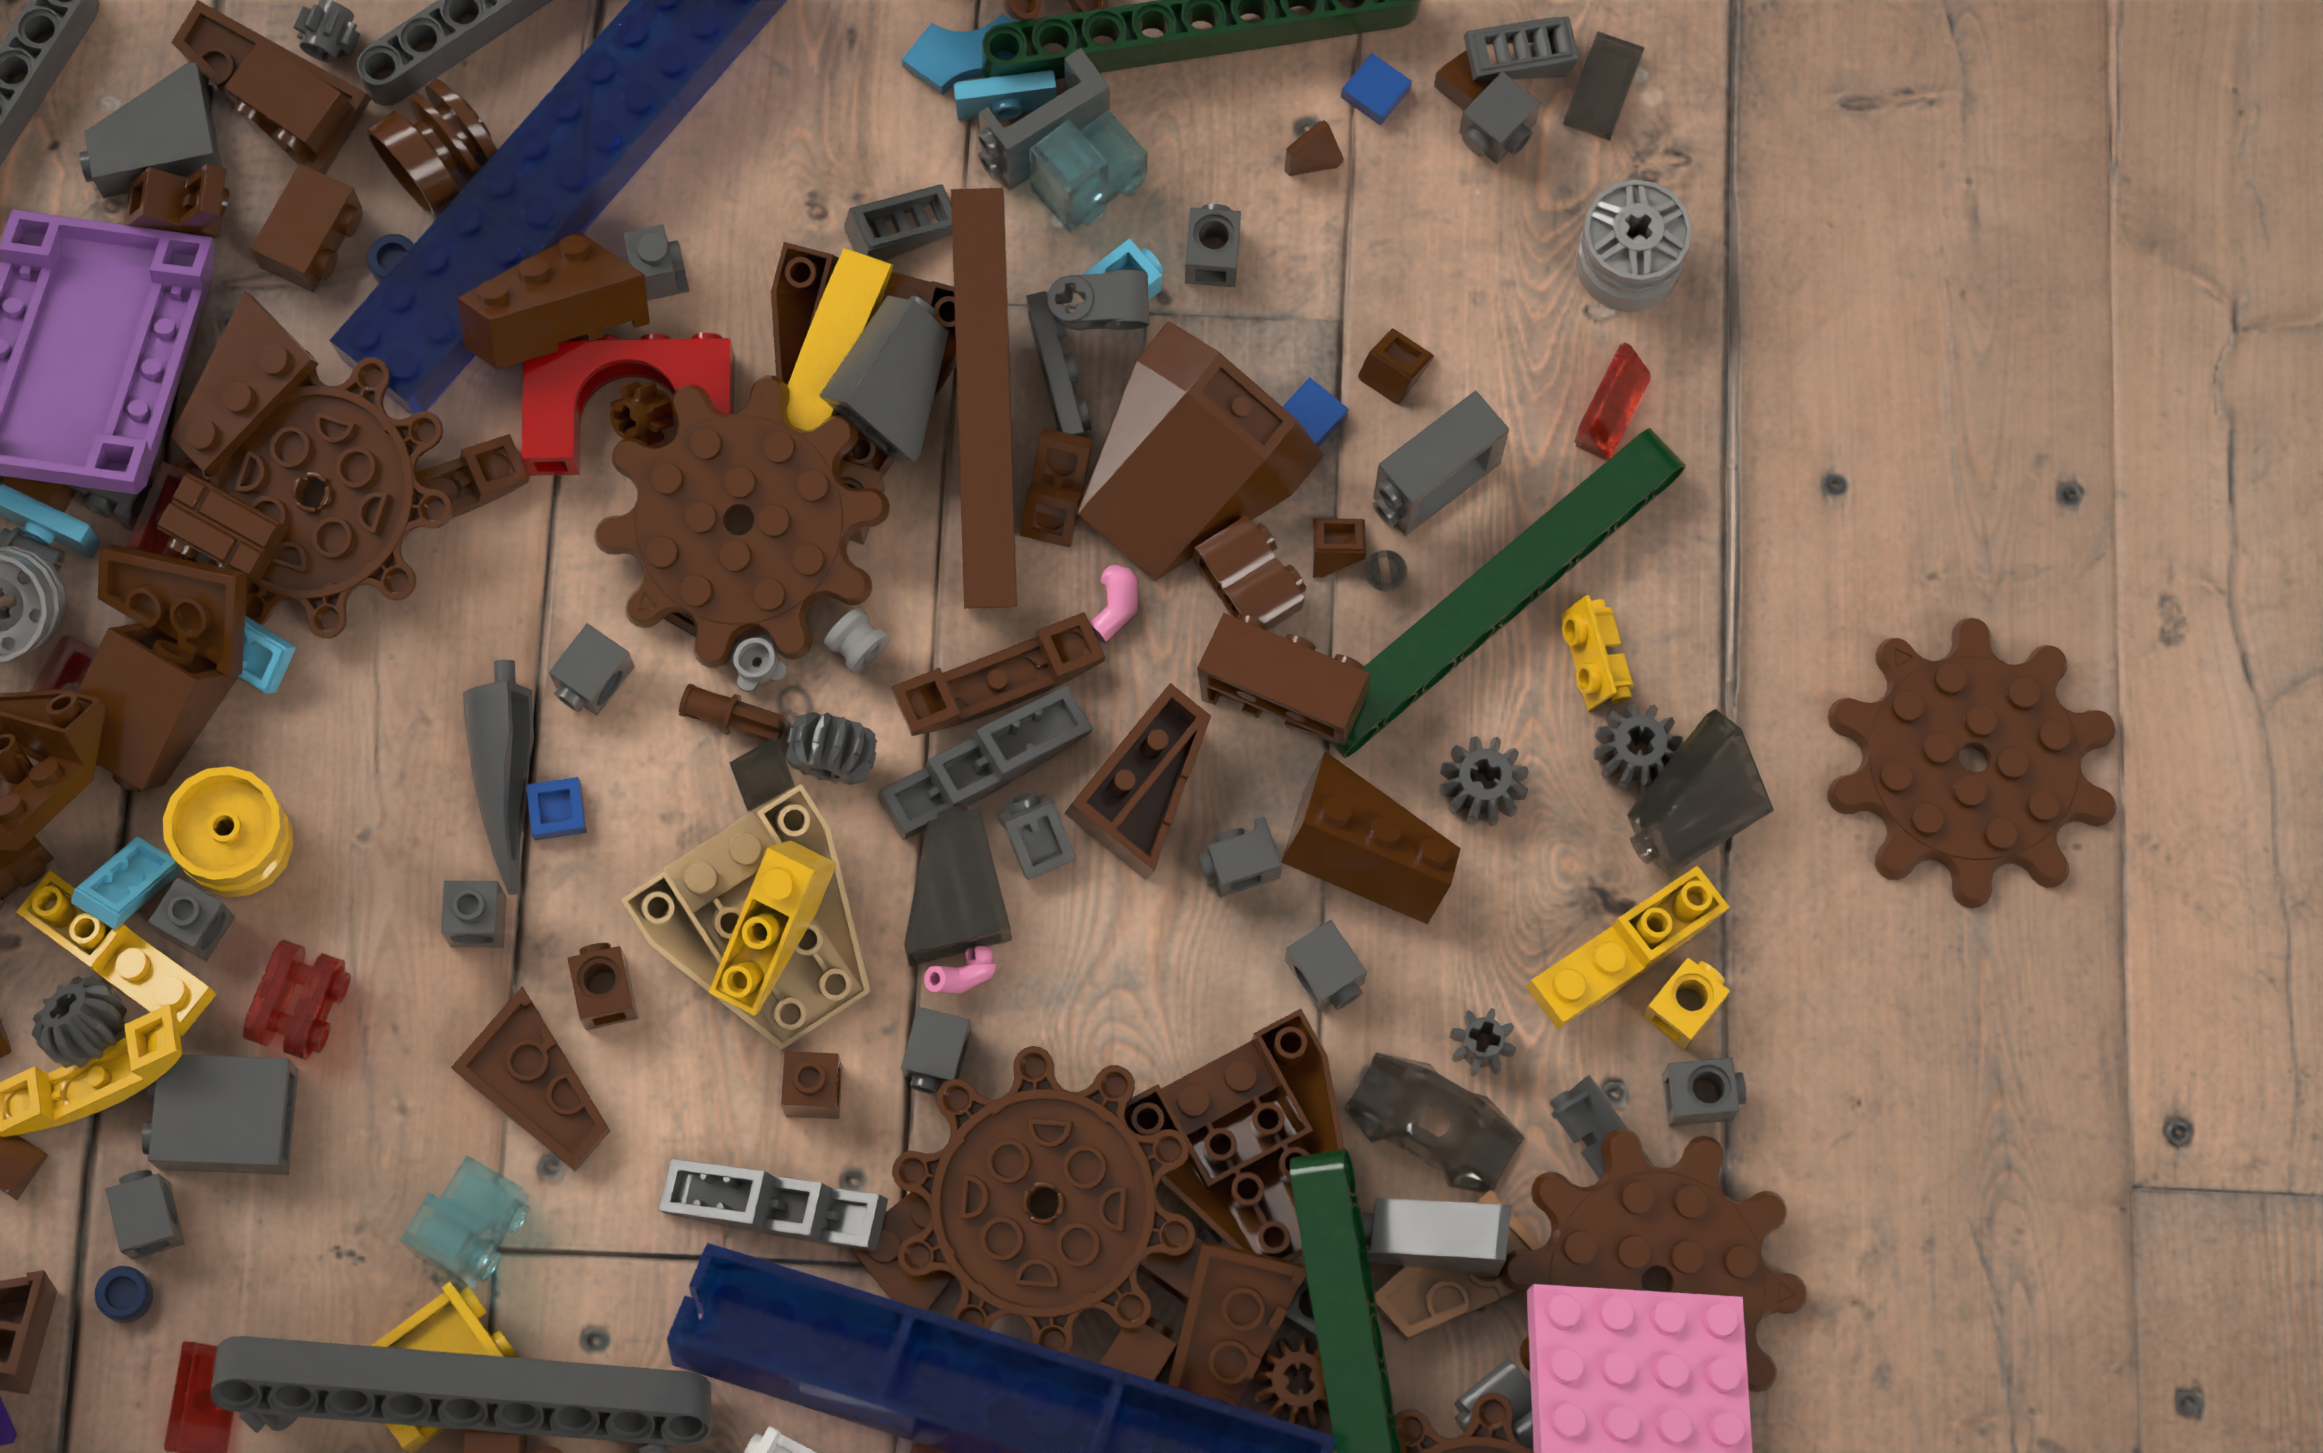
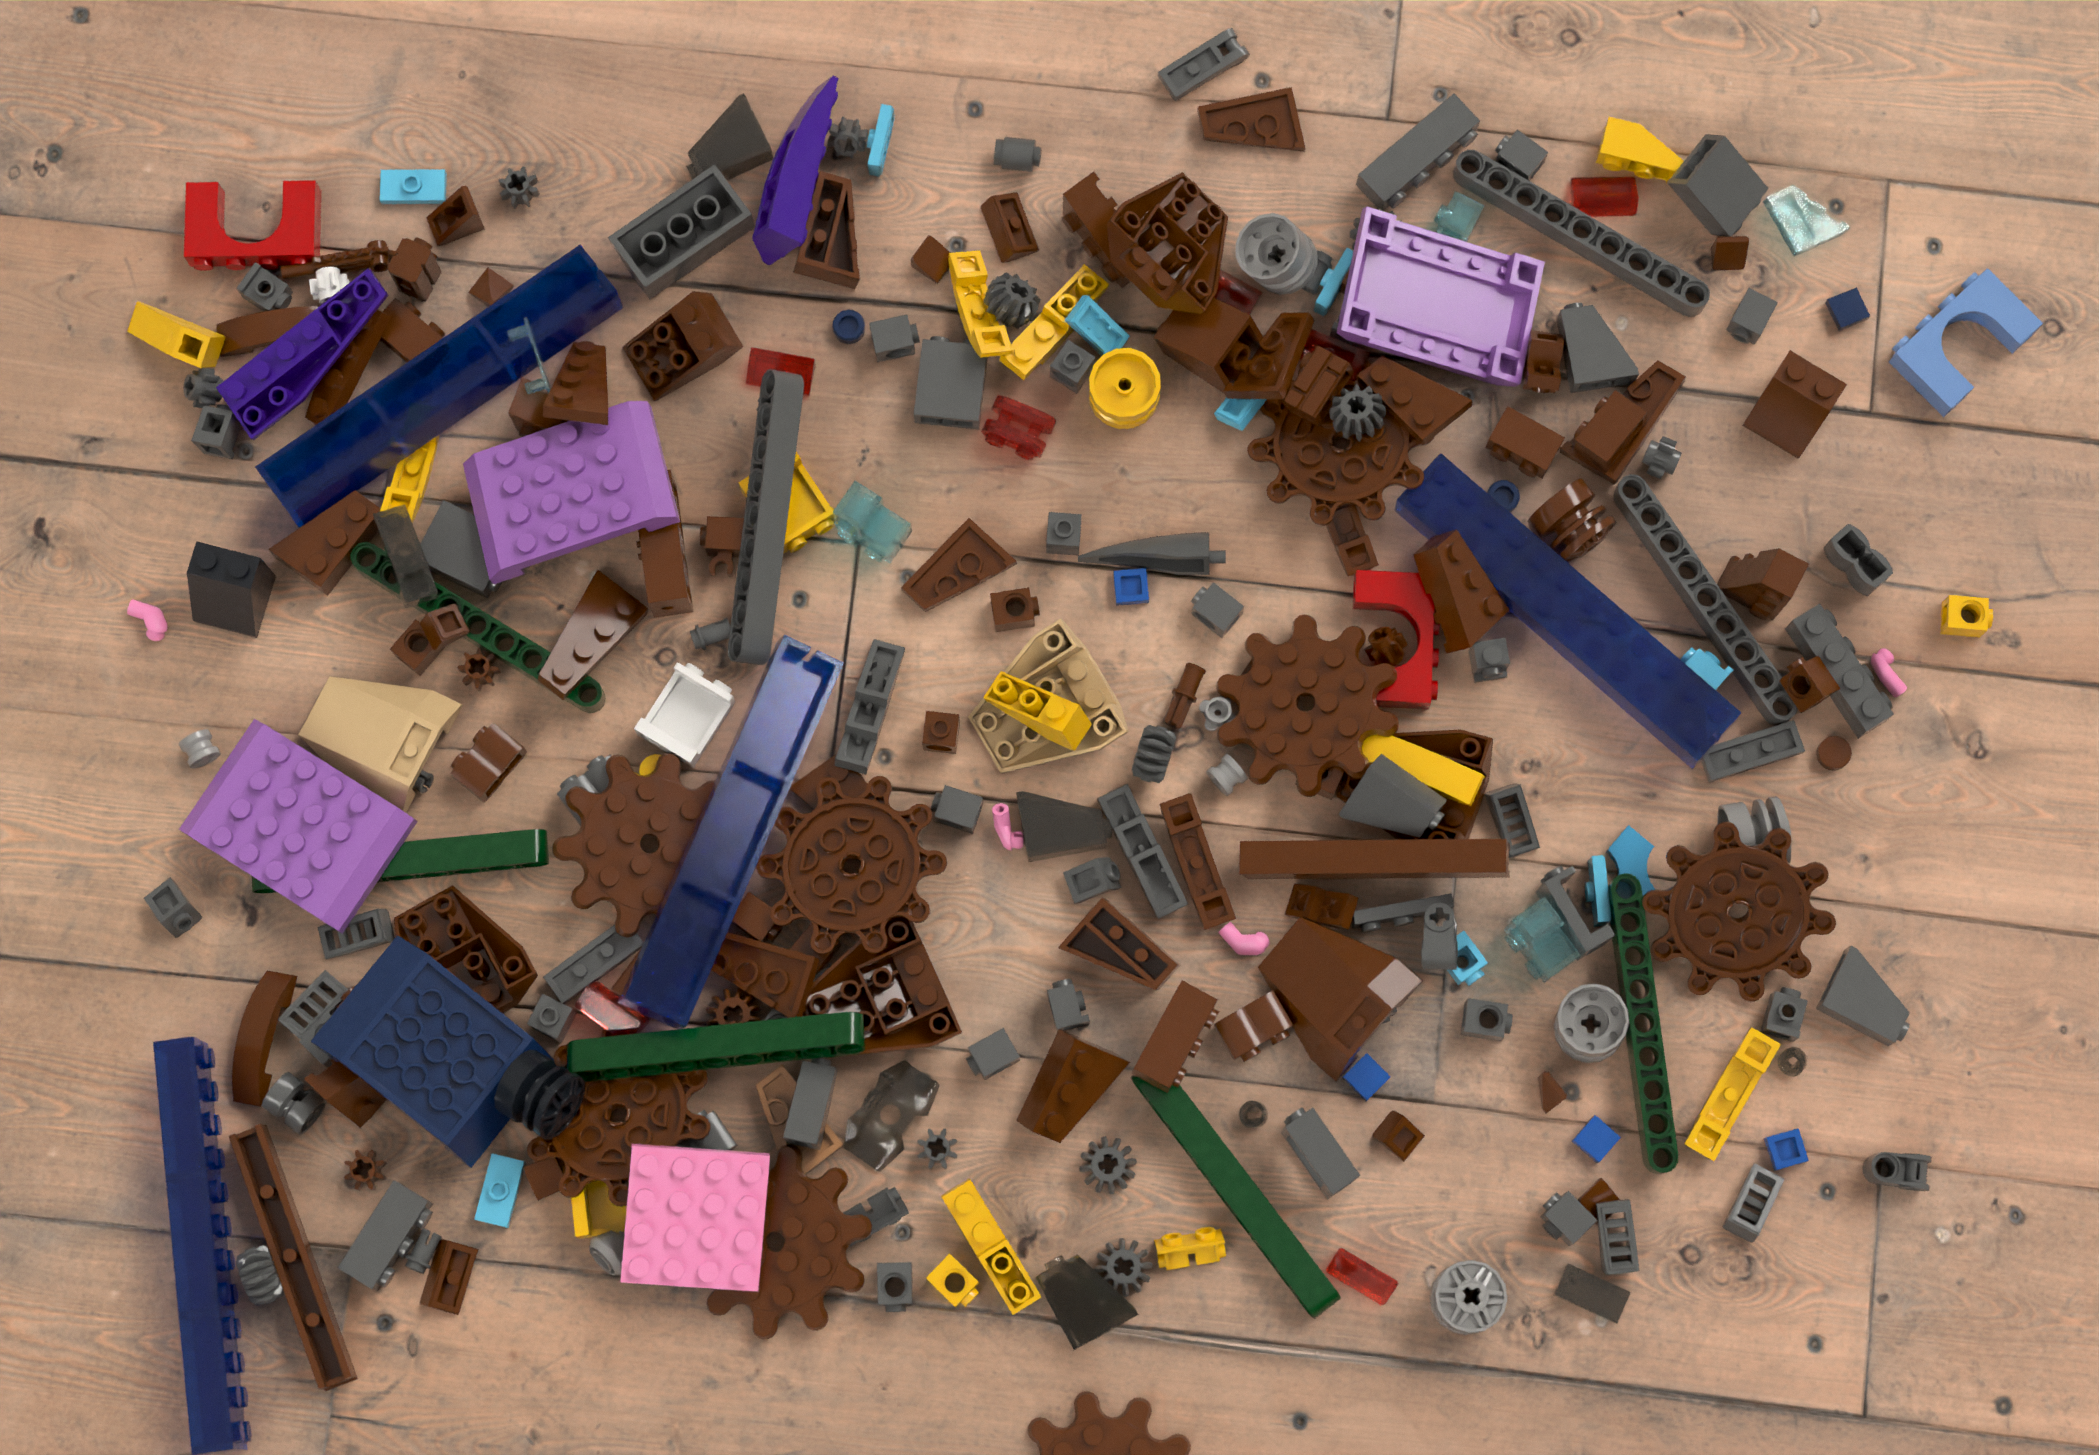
camera: 95 degrees right, 5 degrees up
(250, 452) = (1349, 421): none -> dark grey gear
(762, 774) = (1143, 712): clear smoke slope -> none
(1204, 64) = (1607, 1013): none -> light grey wheel
(1337, 544) = (1275, 1086): reddish brown slope -> none

